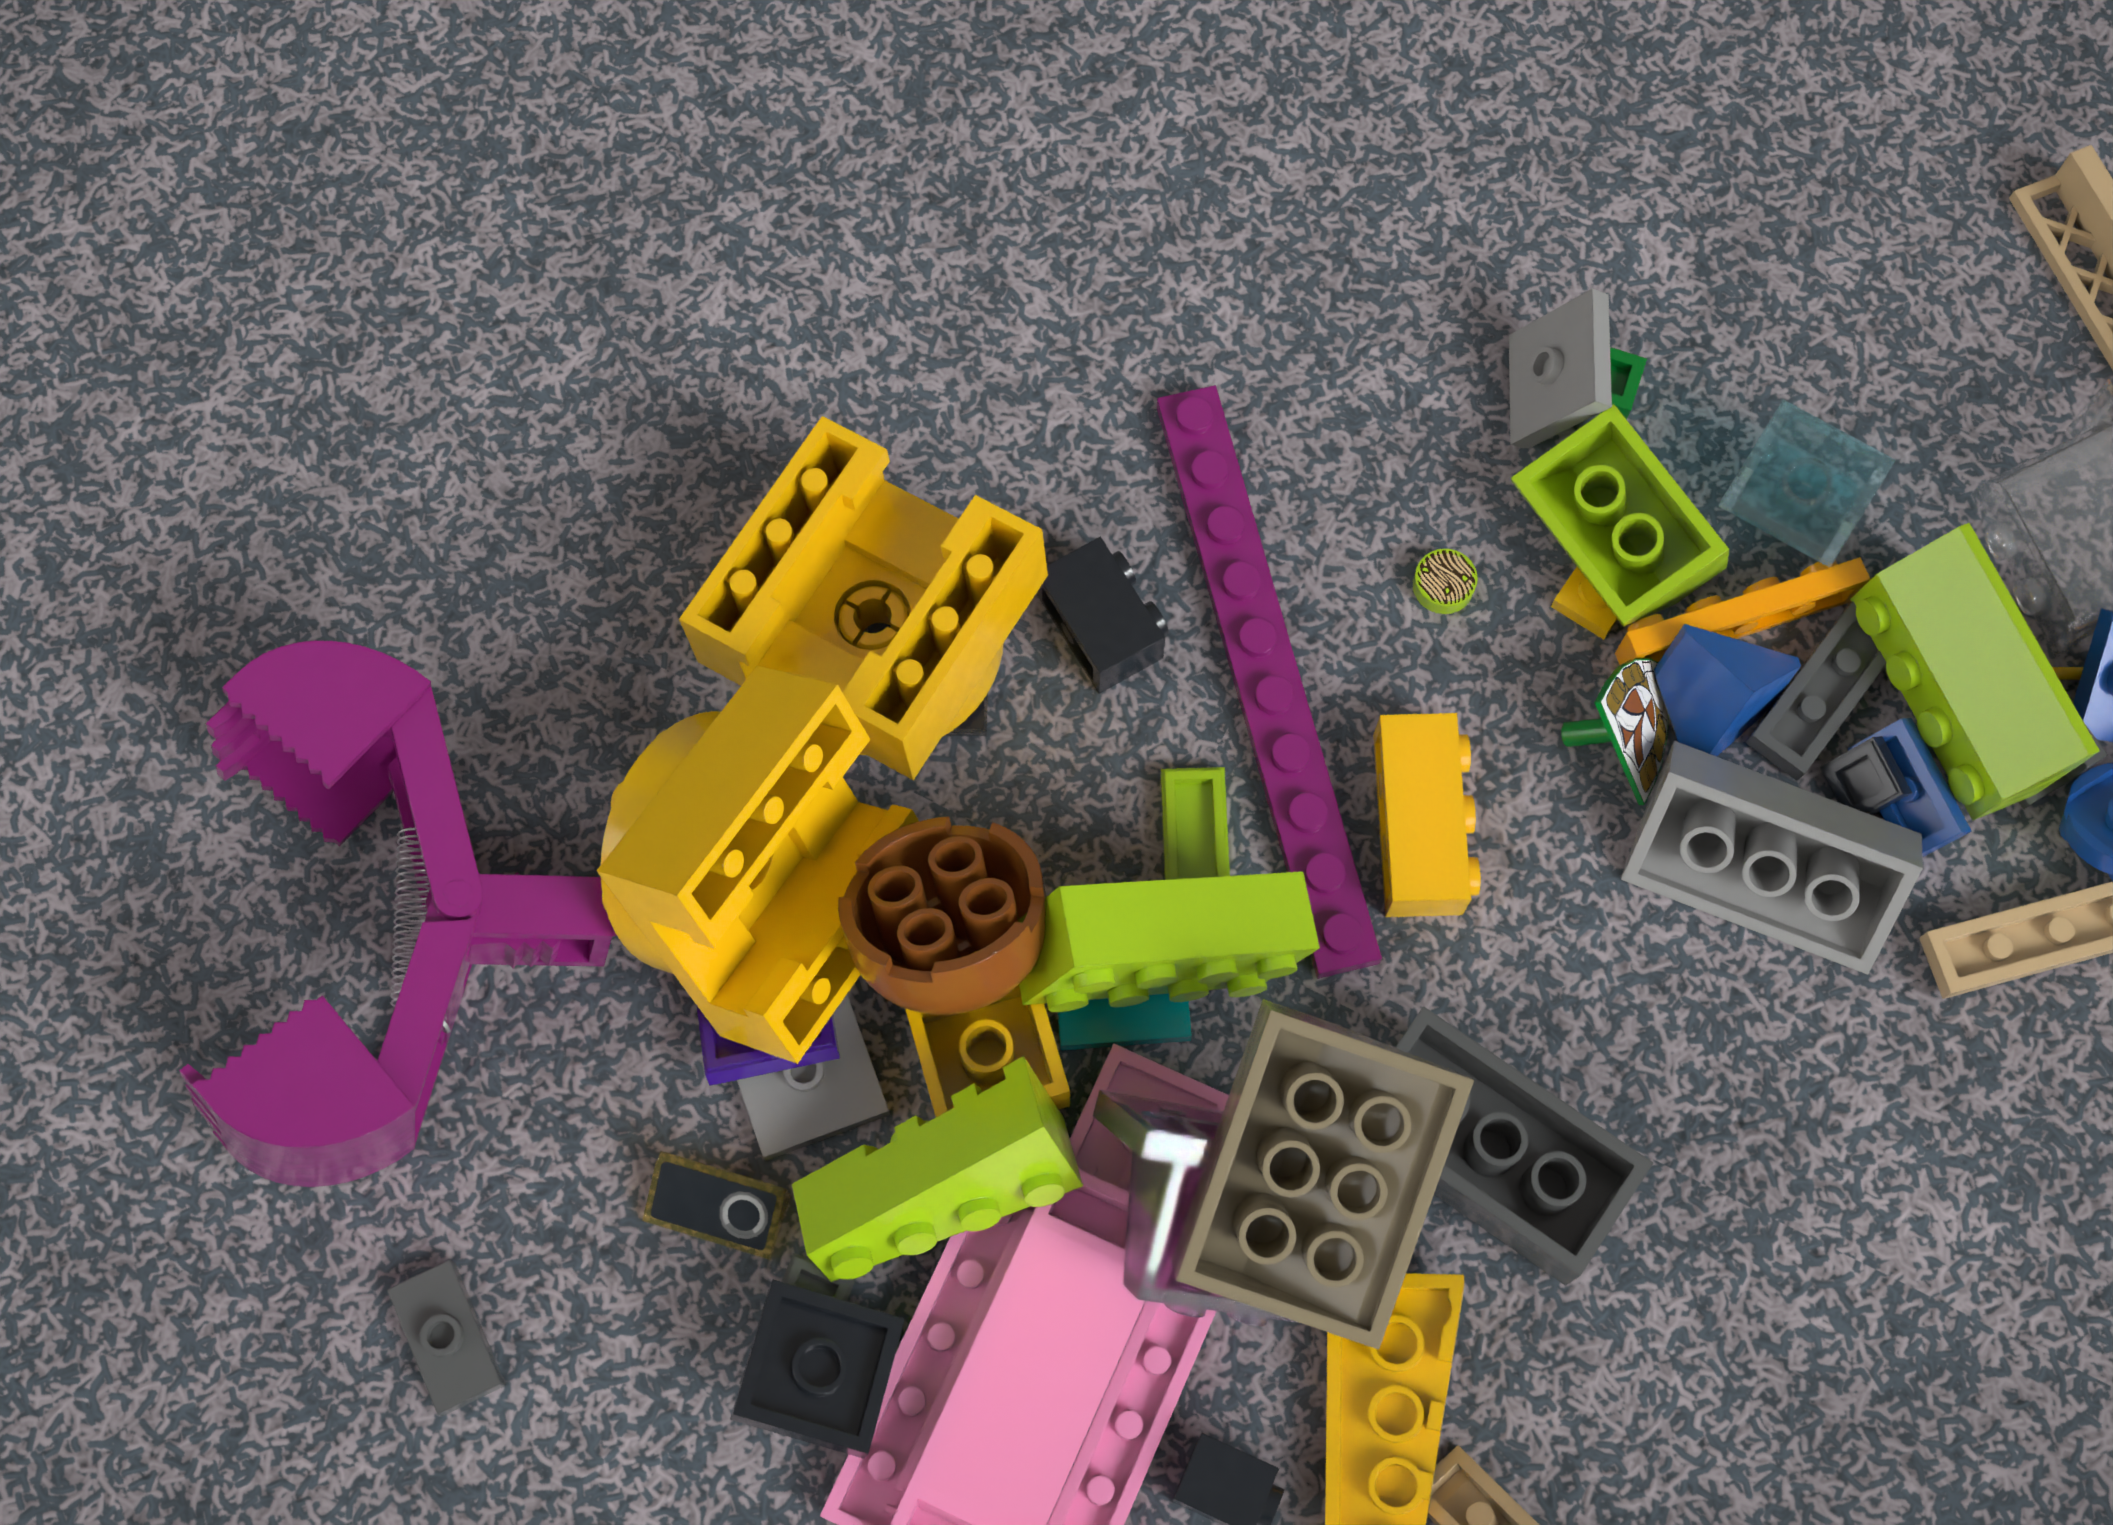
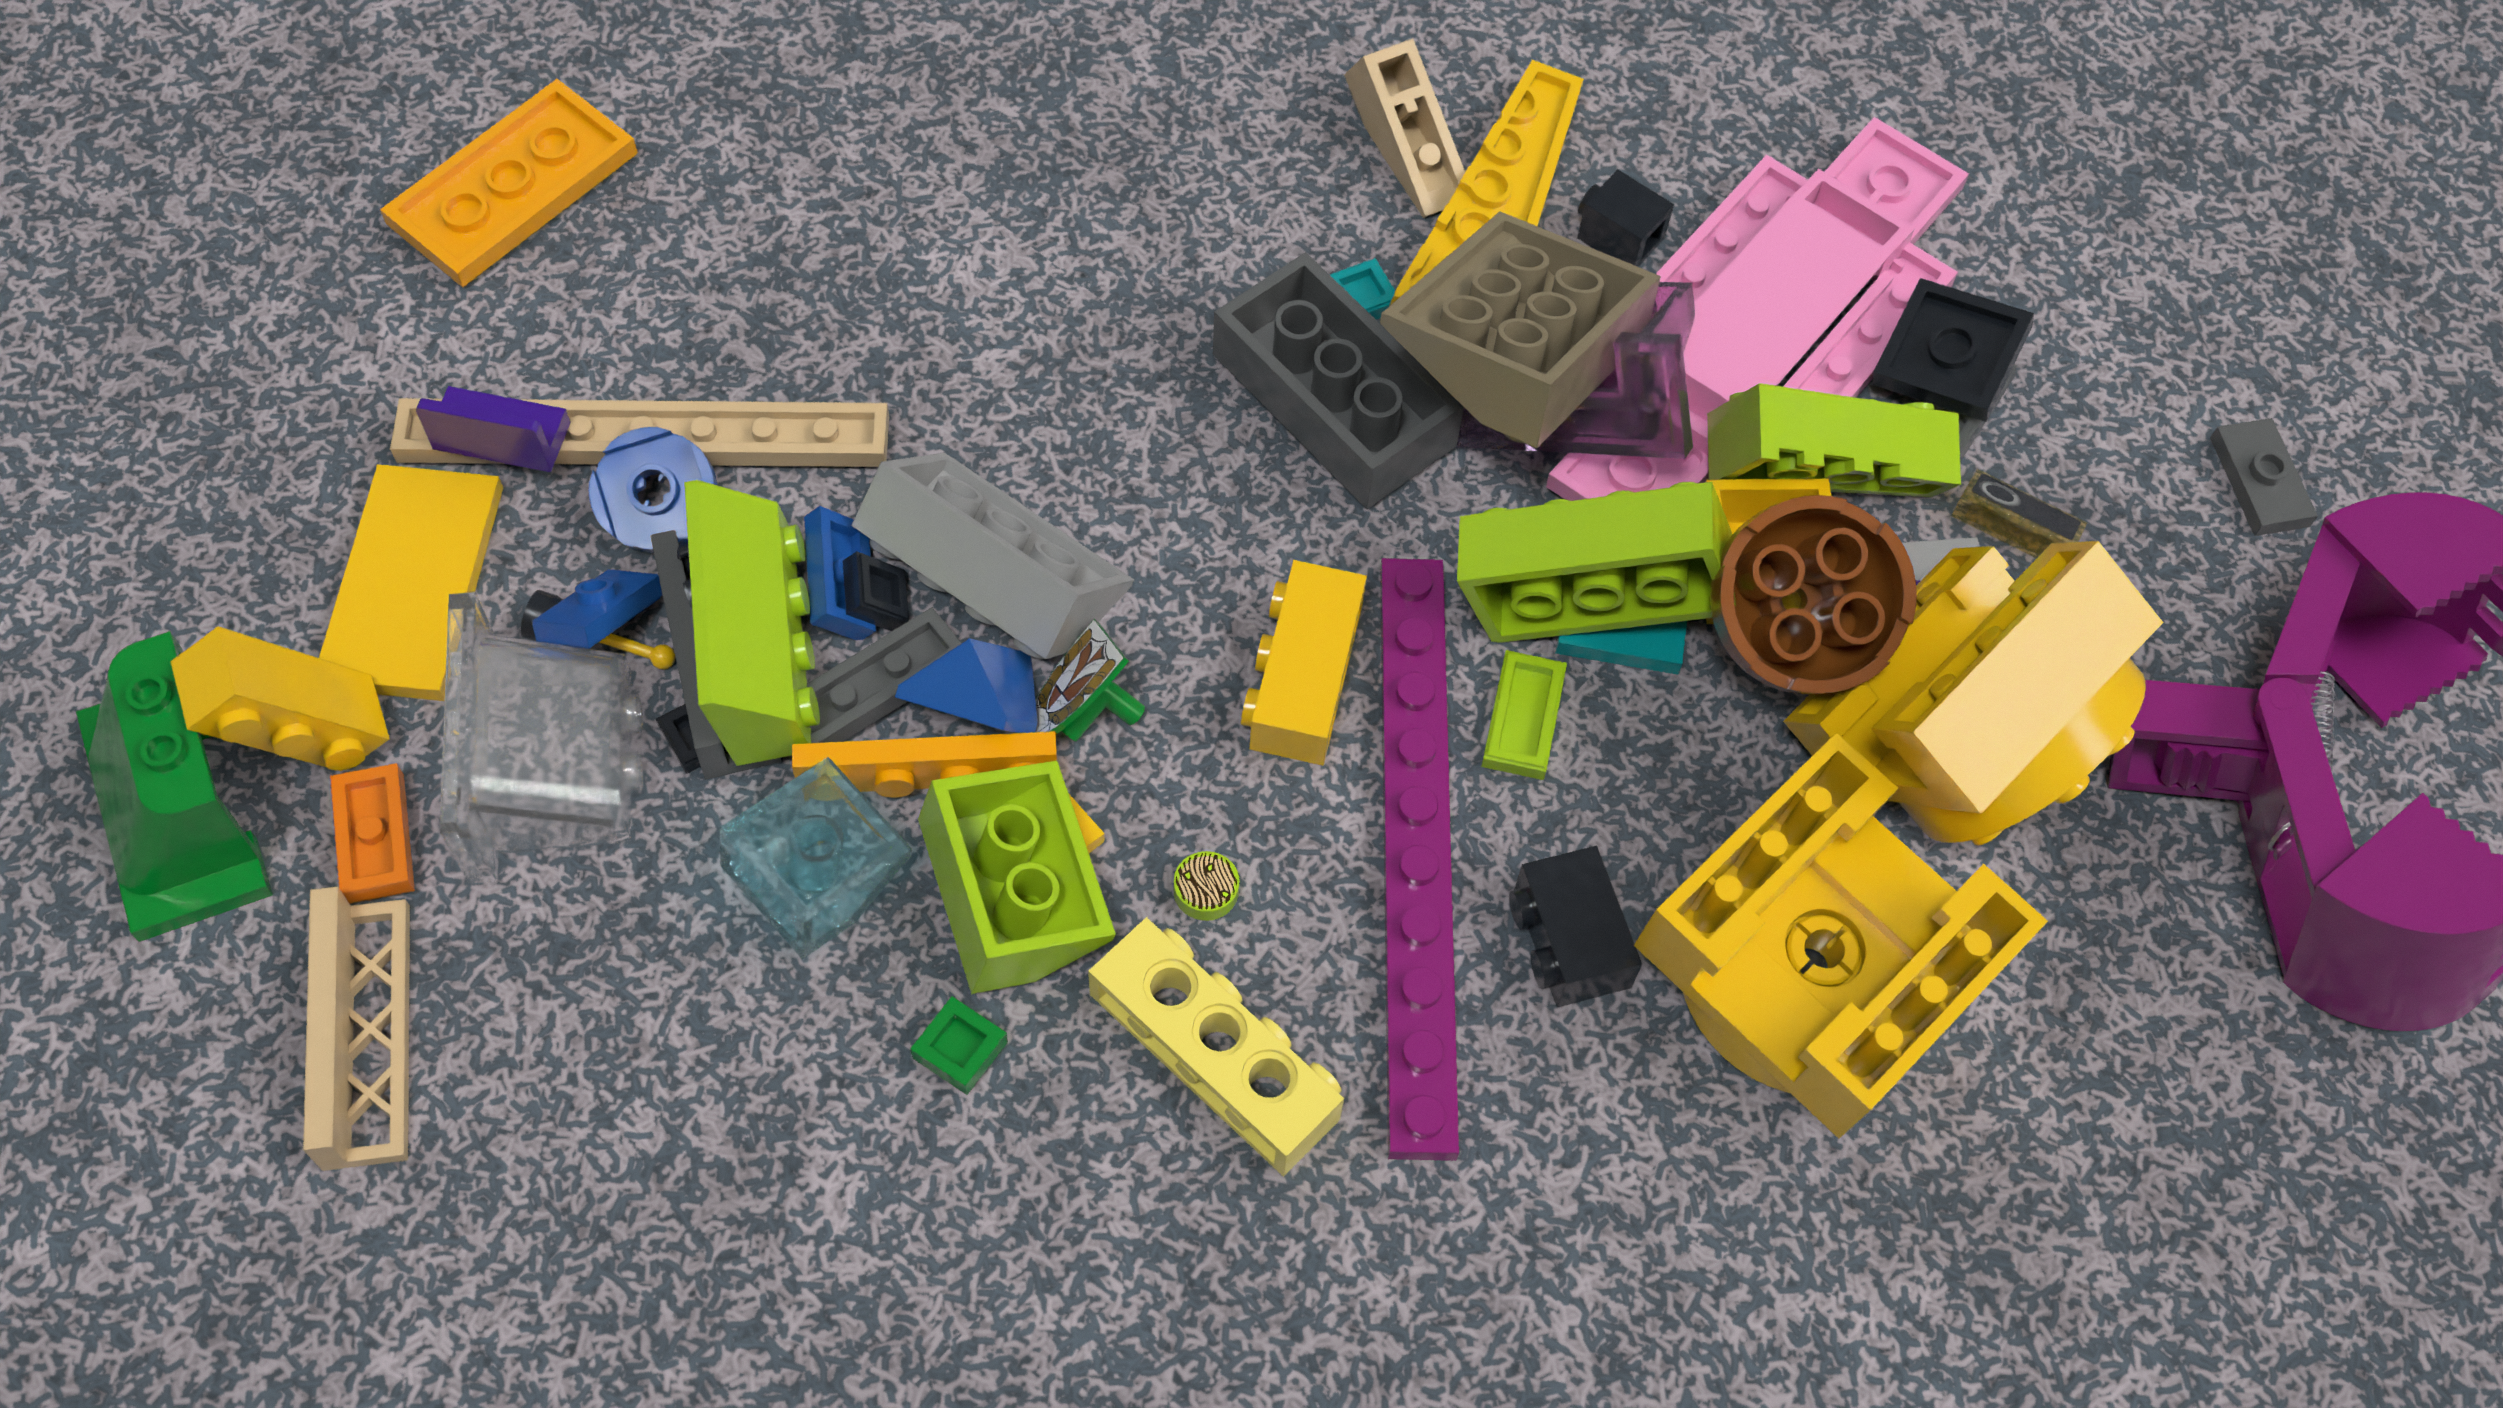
camera: 170 degrees left, 10 degrees down
(1378, 401) = (1275, 1127): none -> light yellow brick
(1500, 1307) = (1367, 285): none -> teal tile
(1560, 369) = (1016, 1042): light grey plate -> none

